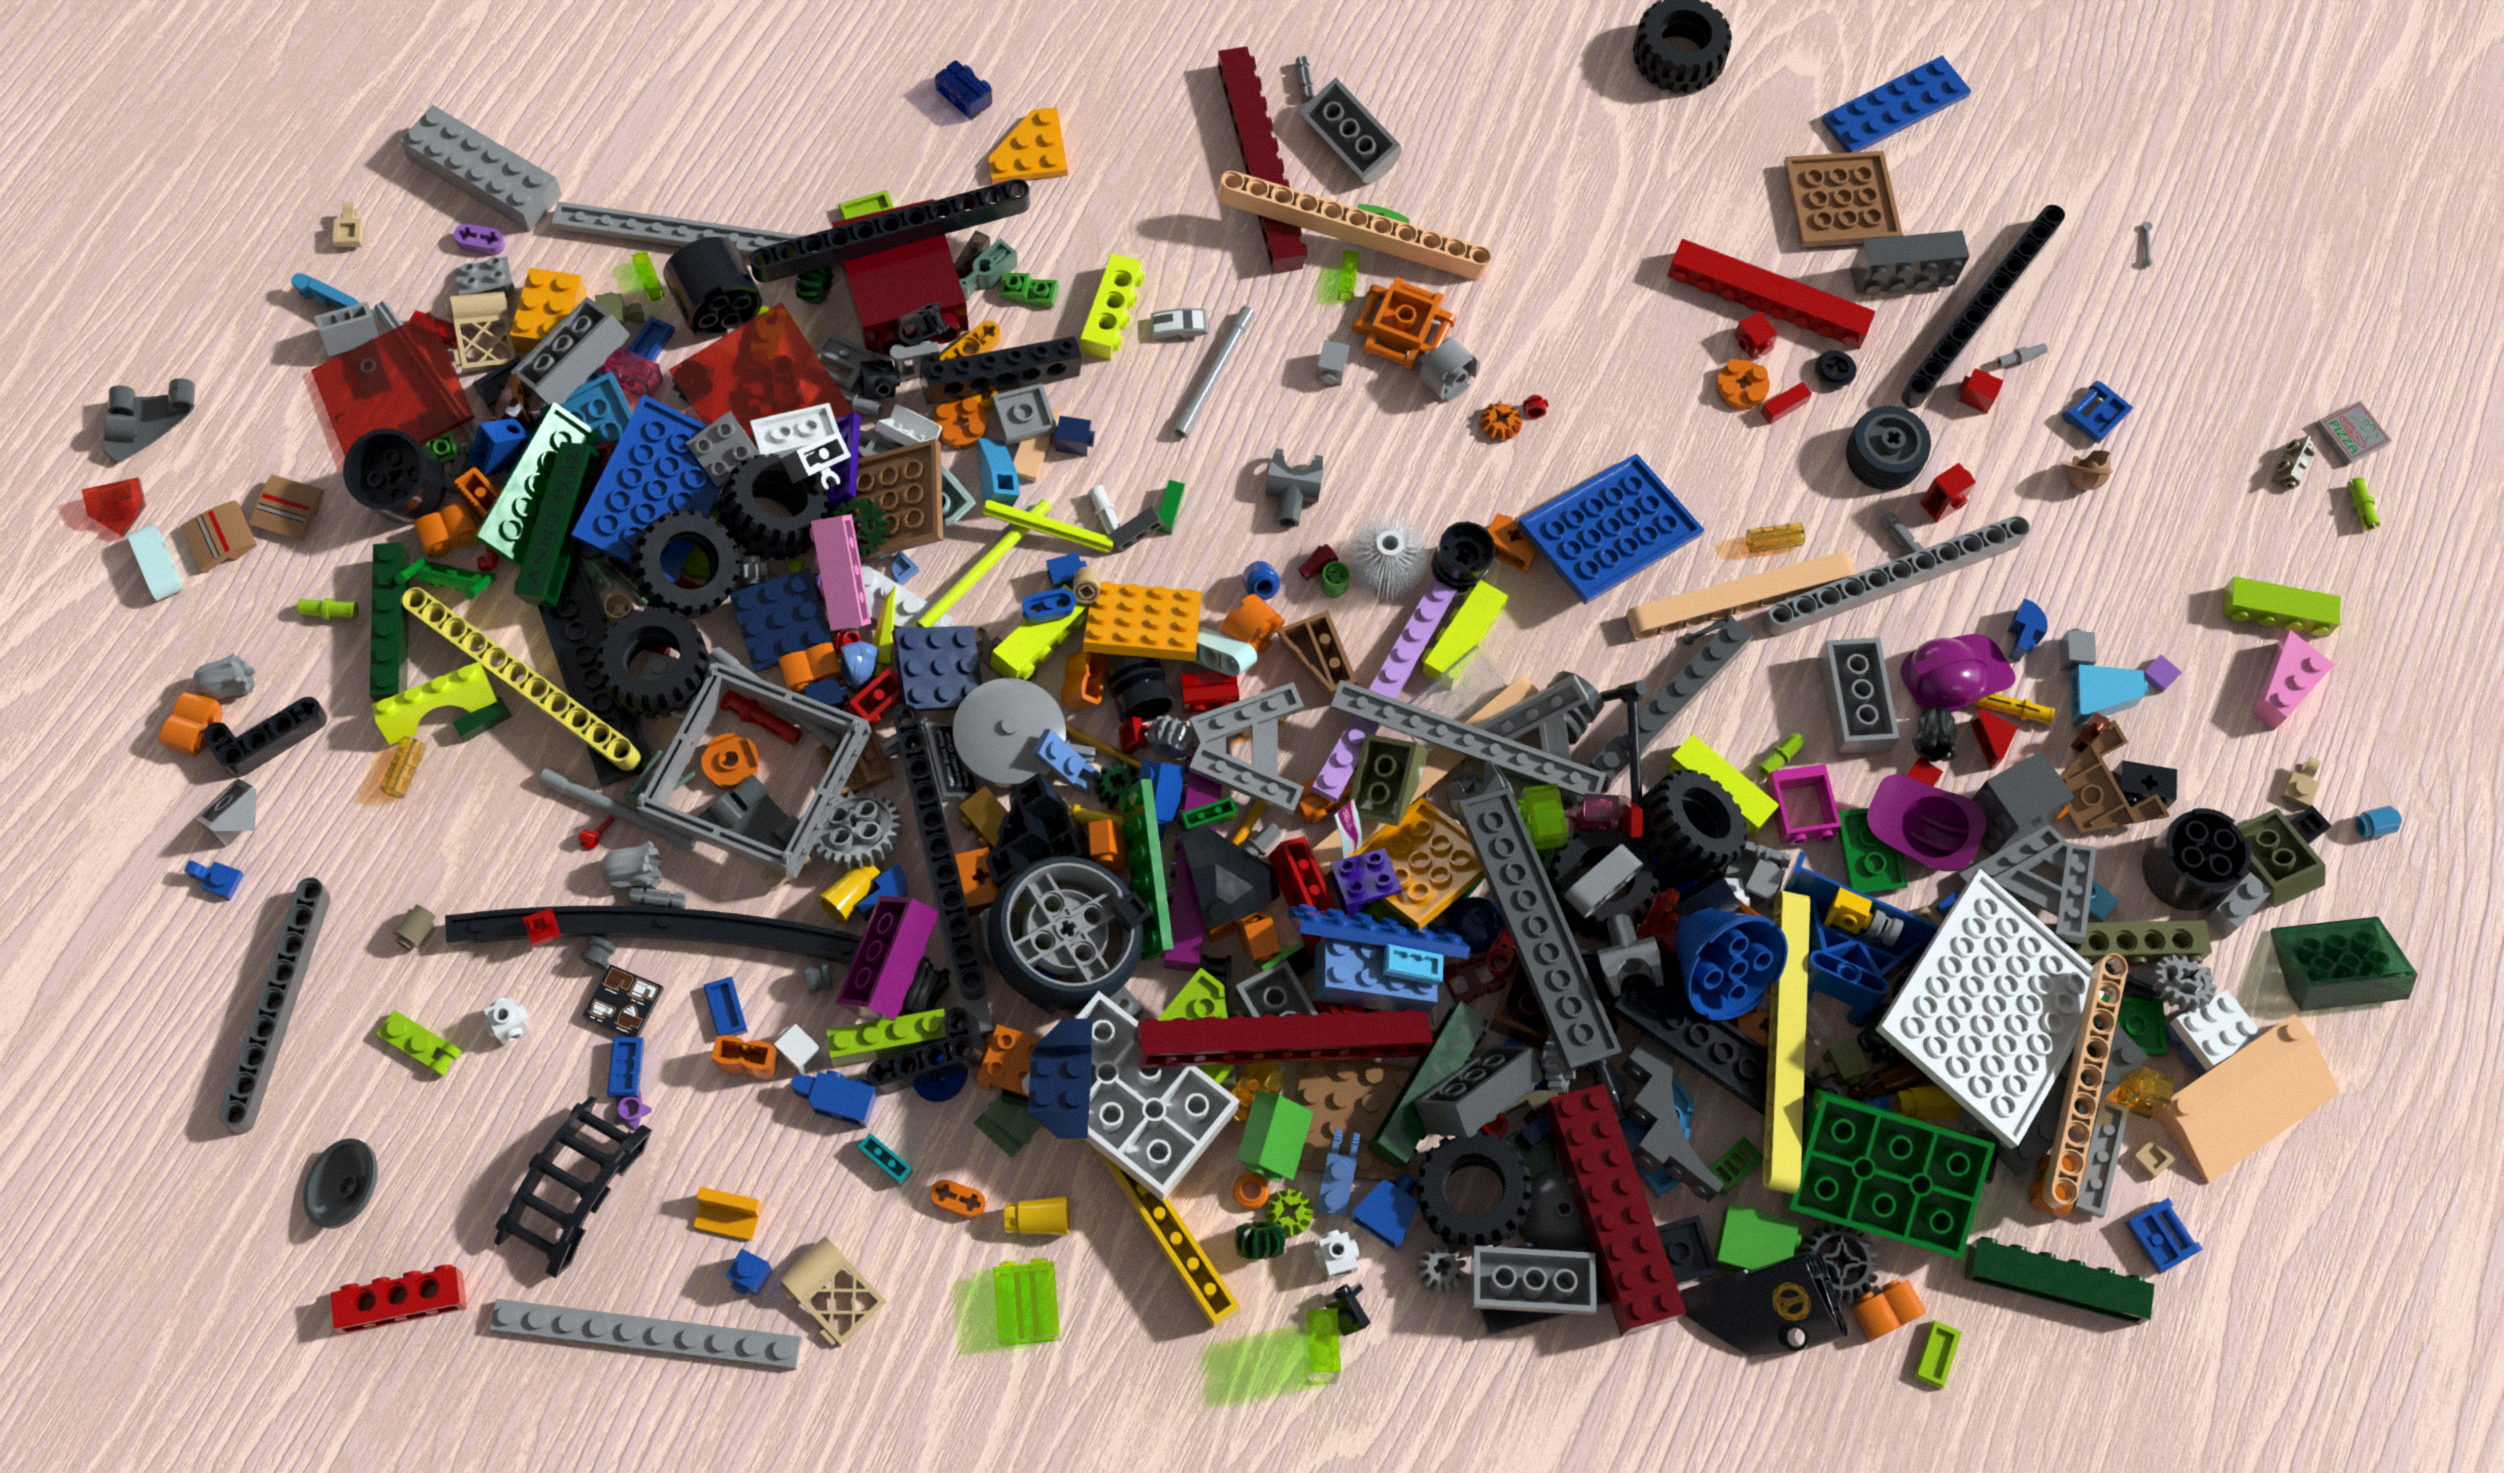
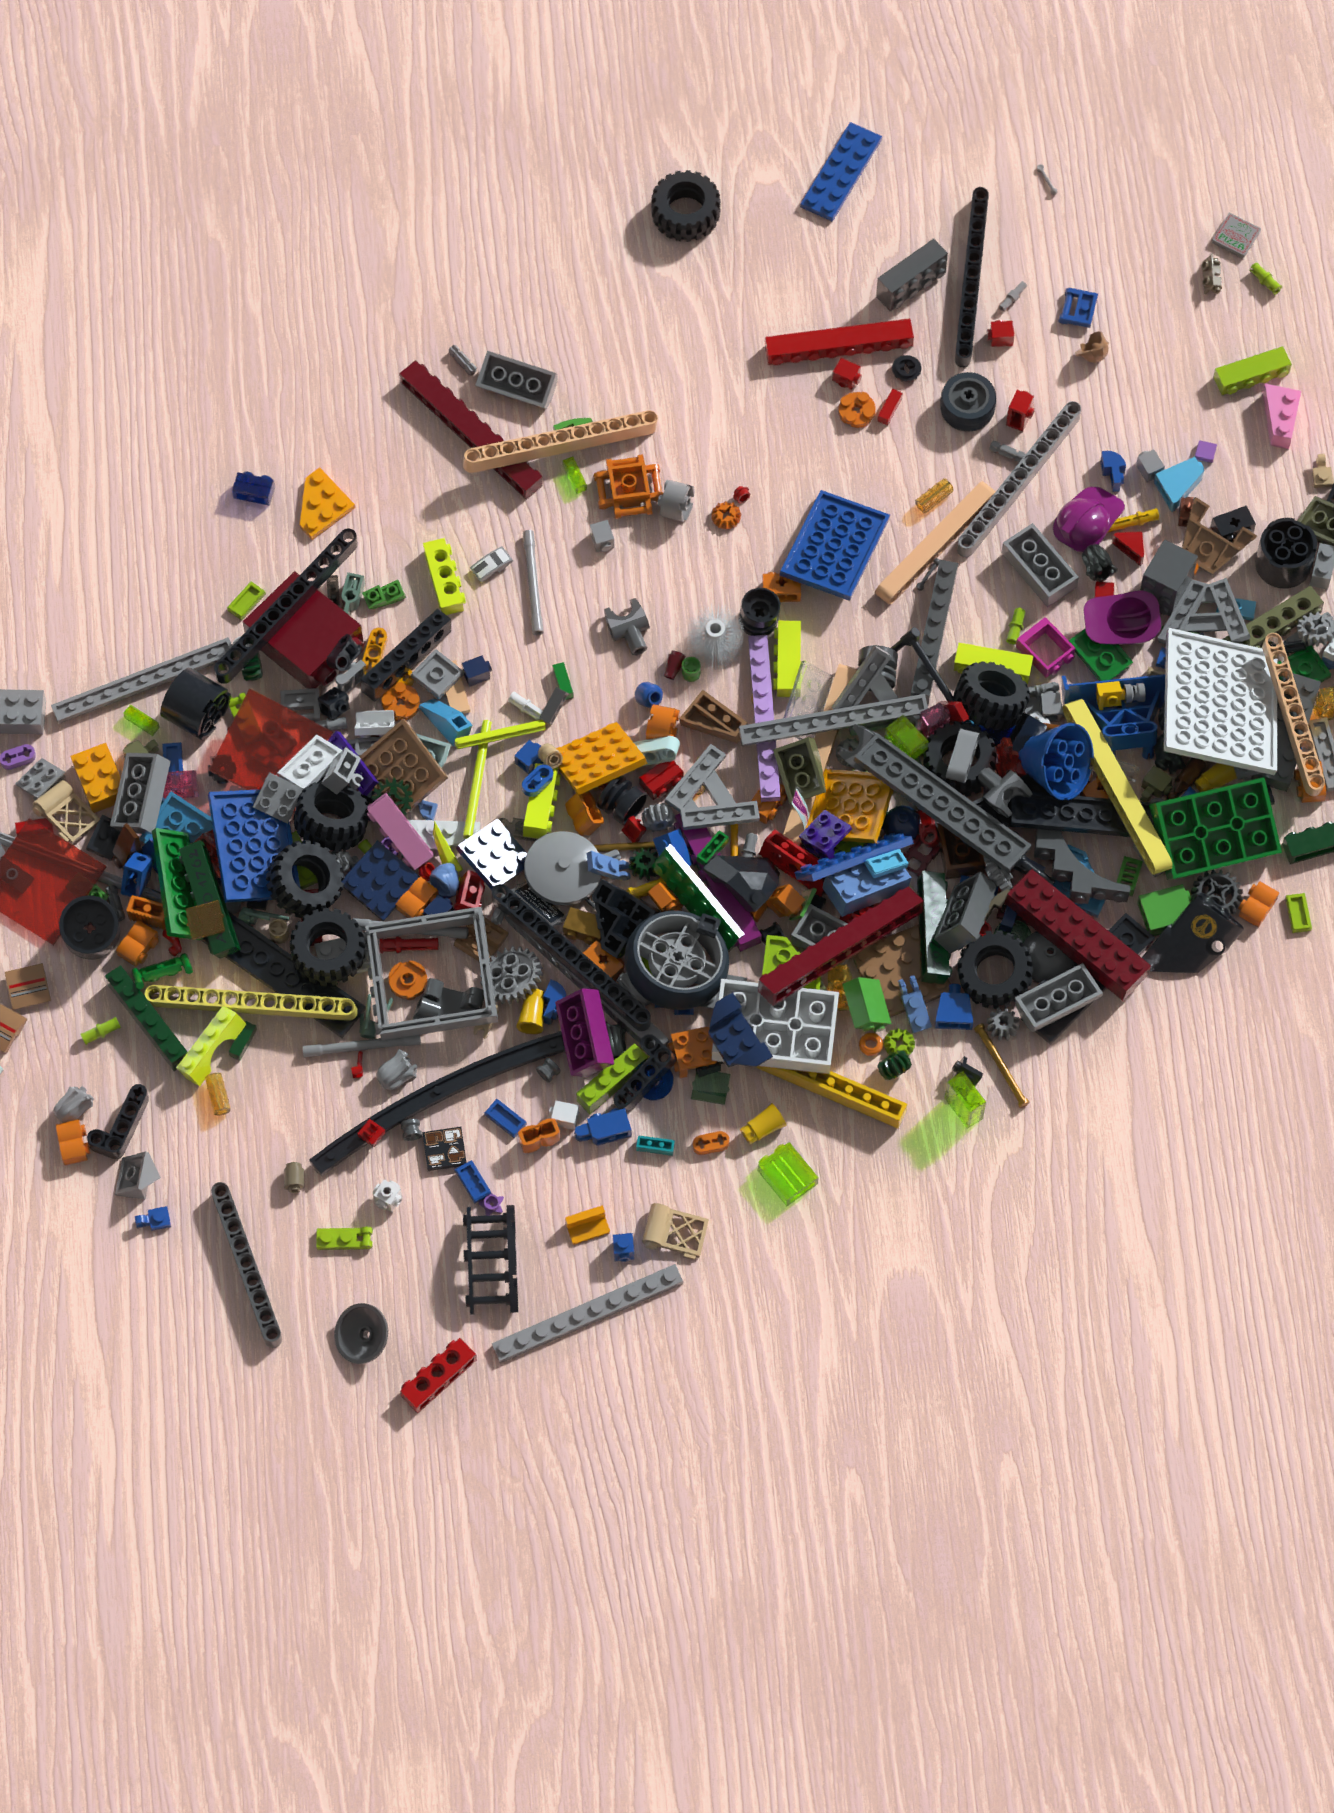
camera: 25 degrees left, 0 degrees up
(531, 544) = (205, 920): none -> clear orange piece
(657, 898) = (421, 1081): light grey axle -> none
(1336, 1265) = (941, 1049): white brick -> none
(1404, 1326) = (980, 1029): none -> pearl gold bar
(1842, 198) = (845, 254): medium nougat plate -> none

